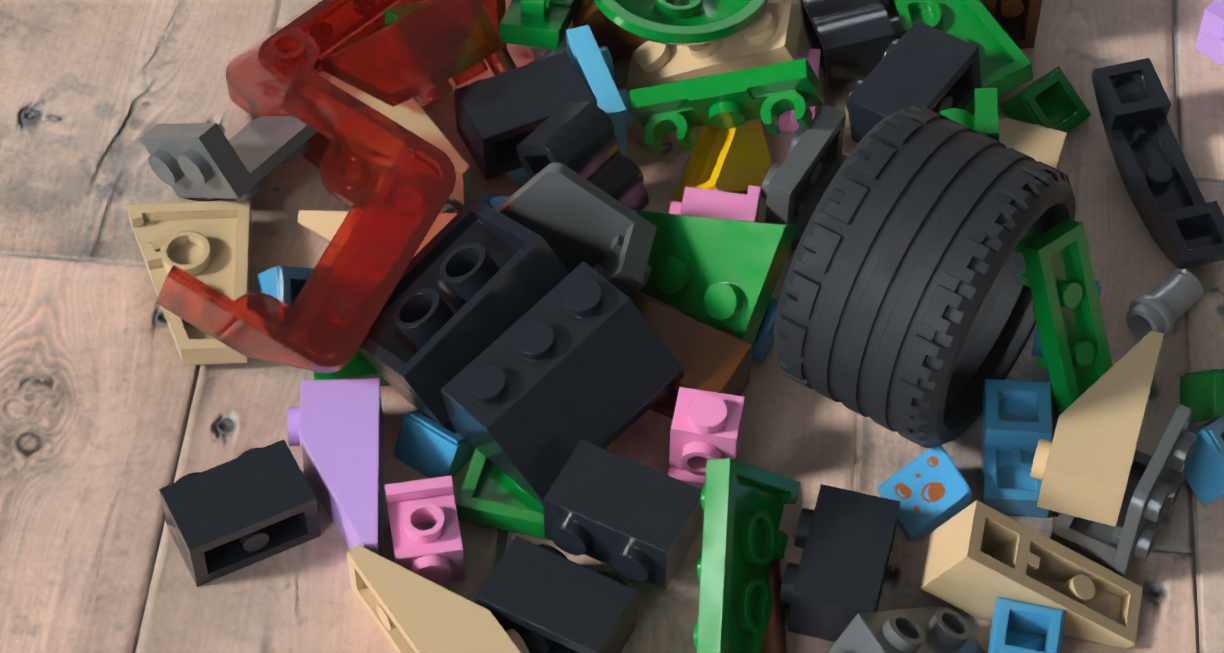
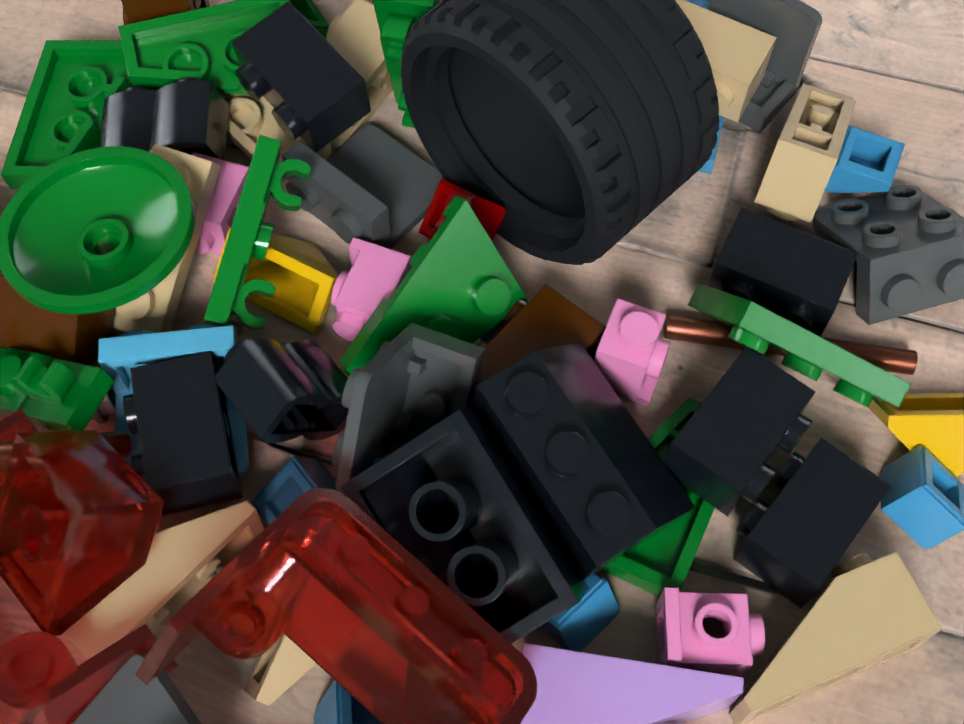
camera: 80 degrees left, 10 degrees up
(928, 492) = (703, 203): dark azure slope -> none

